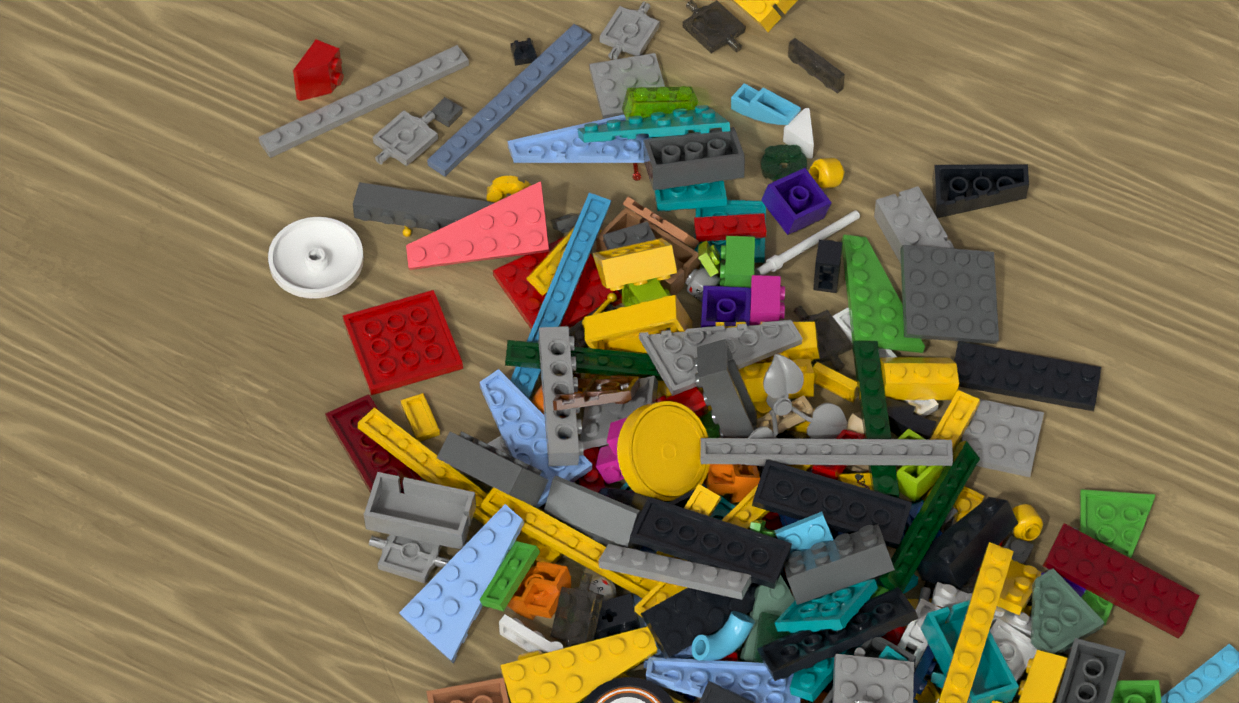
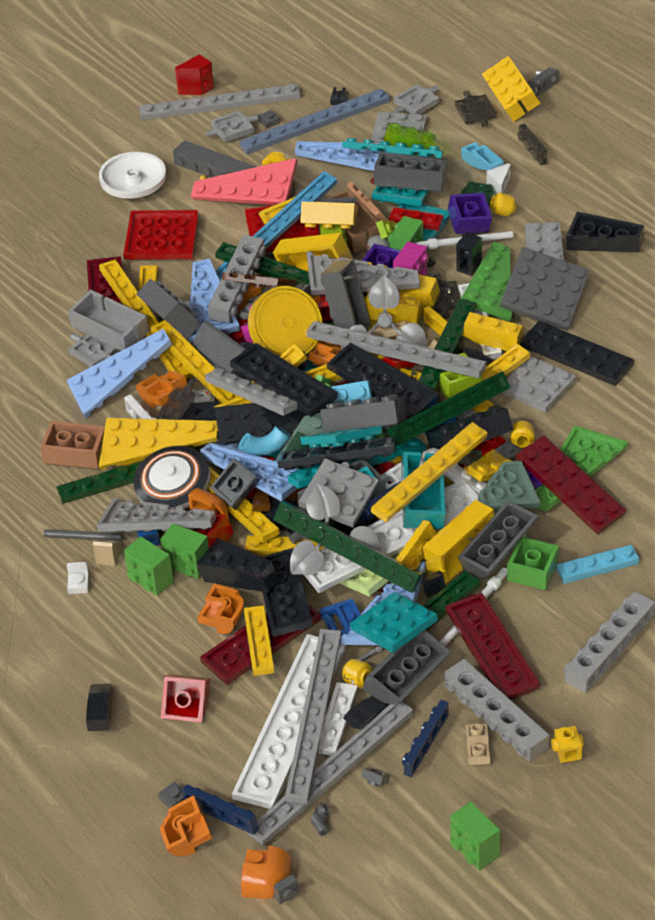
camera: 25 degrees right, 10 degrees down
(509, 576) = (145, 372): bright green plate -> none

